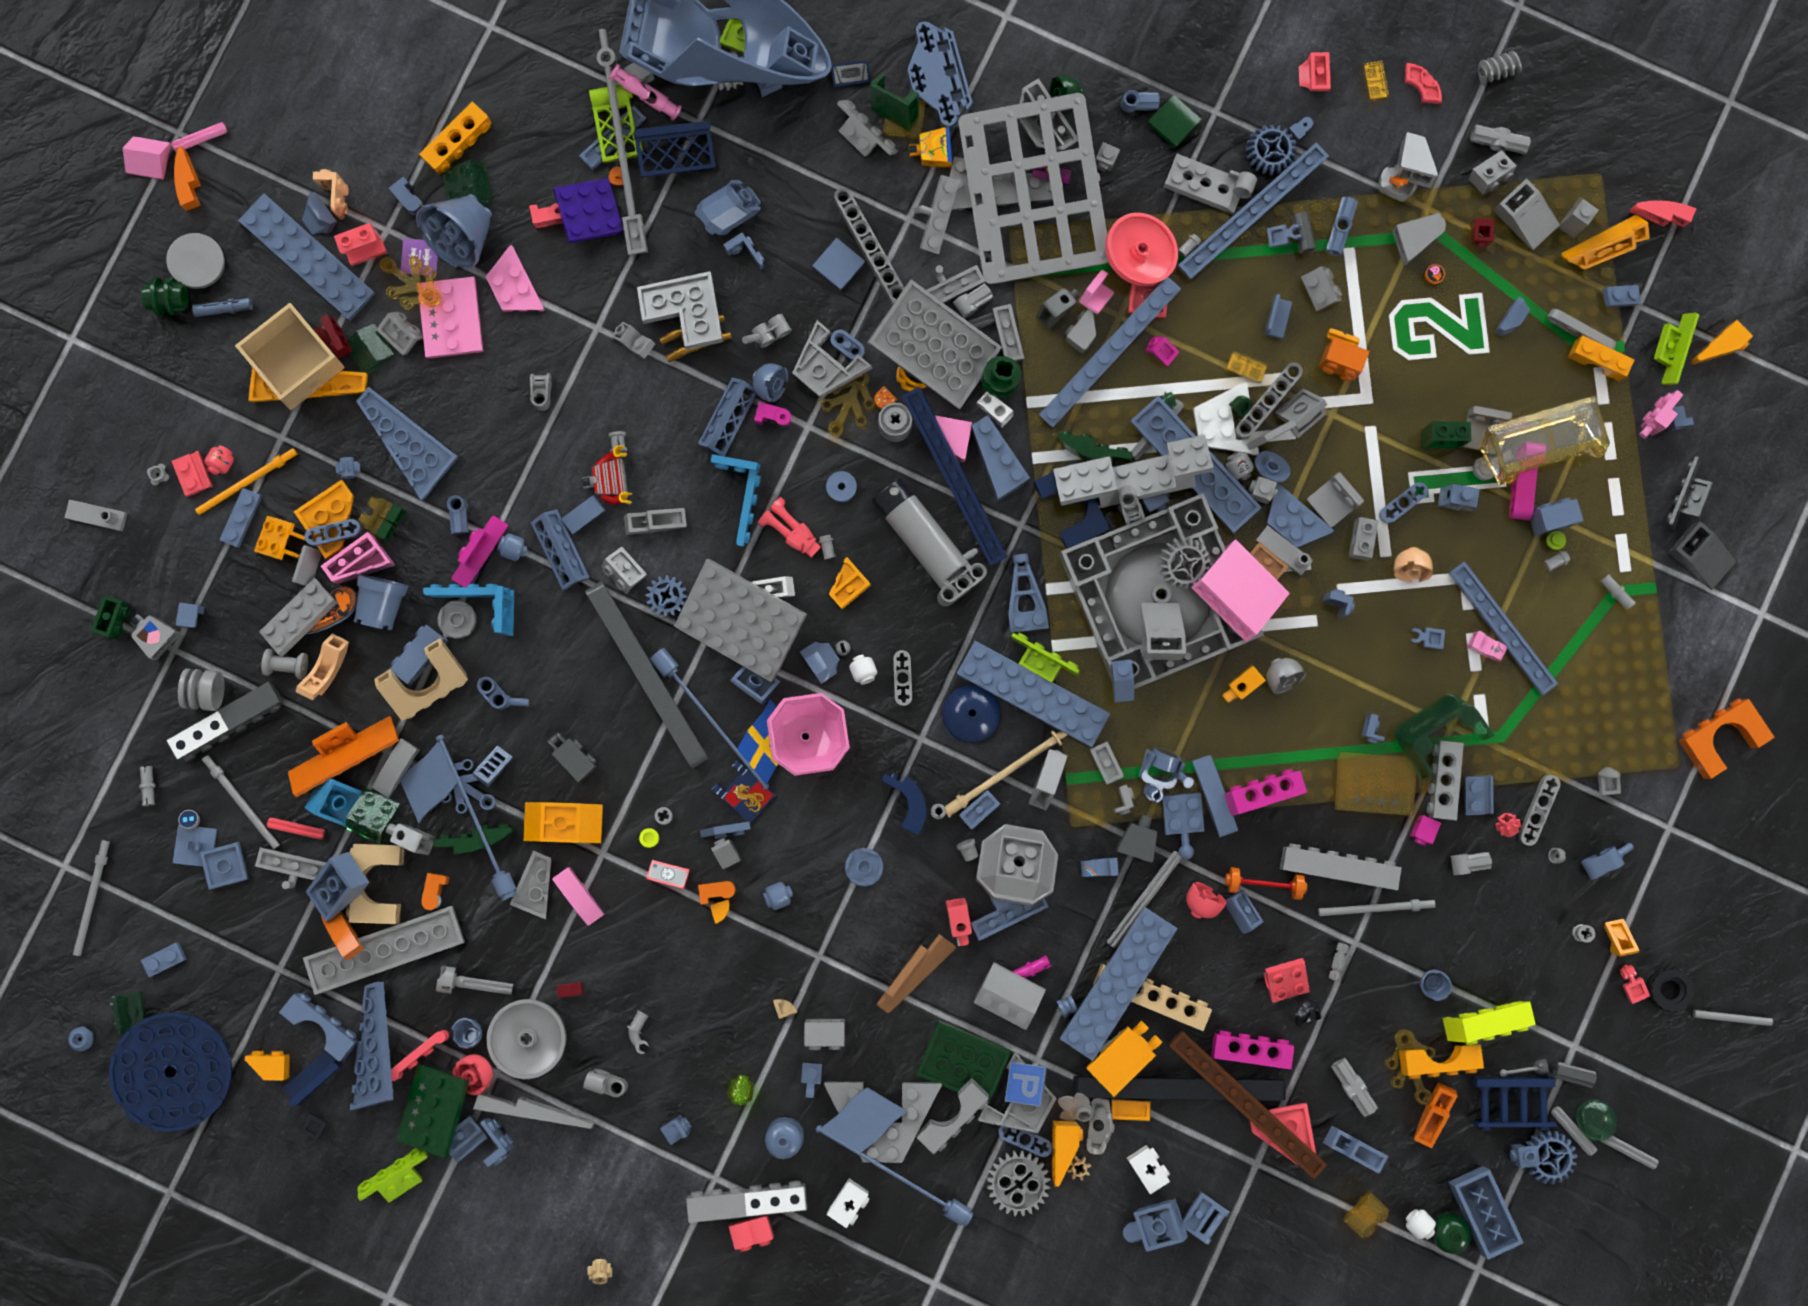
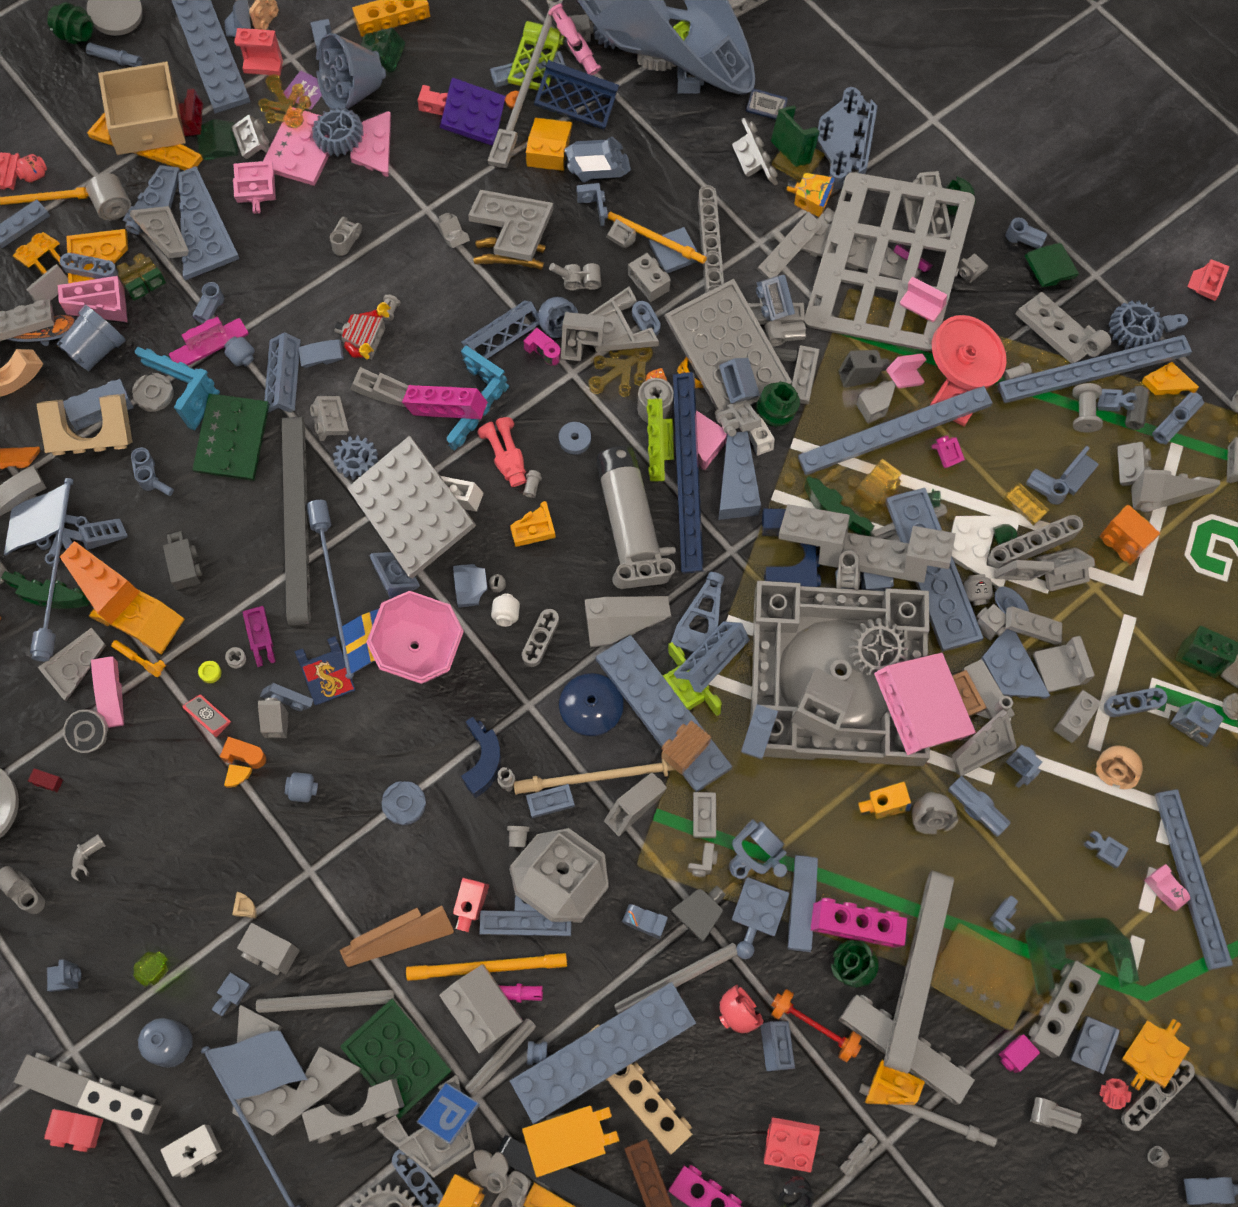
camera: 30 degrees right, 15 degrees down
(309, 456) = (108, 196): none -> light grey piece
(350, 430) = (160, 189): none -> sand blue wing
(378, 466) = (162, 229): none -> light grey wing
(431, 378) = (254, 183): none -> bright pink plate
(486, 292) = (340, 136): none -> sand blue gear
(524, 814) = (102, 585): none -> orange wedge
(550, 628) = (231, 436): none -> dark green plate
(579, 935) = (85, 731): none -> black tile
(604, 857) = (155, 669): none -> light orange piece
(671, 787) = (259, 633): none -> magenta hinge
(673, 207) = (548, 144): none -> light orange slope
(719, 512) = (445, 402): none -> dark pink brick
(785, 271) = (621, 234): none -> light grey plate
(802, 389) = (580, 330): none -> light grey brick
(830, 303) = (649, 277): none -> light grey brick
(853, 265) = (686, 252): none -> light orange bar
(886, 1047) = (324, 1001): none -> light grey axle
(917, 458) = (660, 439): none -> lime bracket
(951, 988) = (547, 961): none -> light orange piece
(953, 277) = (775, 298): none -> sand blue window
(958, 370) = (739, 380): none -> sand blue brick
(960, 629) = (619, 617): none -> light grey wedge
(978, 402) = (741, 417): none -> light grey plate
(1040, 1022) = (500, 1057): none -> light grey axle
(1056, 628) = (715, 656): none -> sand blue fence
(1068, 718) = (685, 747): none -> medium nougat brick
(1082, 220) = (923, 299): none -> bright pink panel
(1118, 408) = (879, 483): none -> clear yellow brick
(1255, 343) = (1046, 485): none -> sand blue piece
(1262, 254) = (1087, 396): none -> light grey piece
(1275, 823) = (855, 964): none -> dark green cylinder
(1298, 477) = (1033, 625): none -> light grey plate
(1301, 599) = (986, 745): none -> light grey wing
(1316, 651) = (979, 806): none -> sand blue piece
(1319, 190) = (1169, 380): none -> light orange wing
(1326, 805) = (918, 972): none -> light grey beam
(1343, 900) = (894, 1087): none -> light orange wing
(1352, 304) = (1160, 489): none -> light grey wedge
(1526, 781) = (1155, 1054): none -> light orange plate

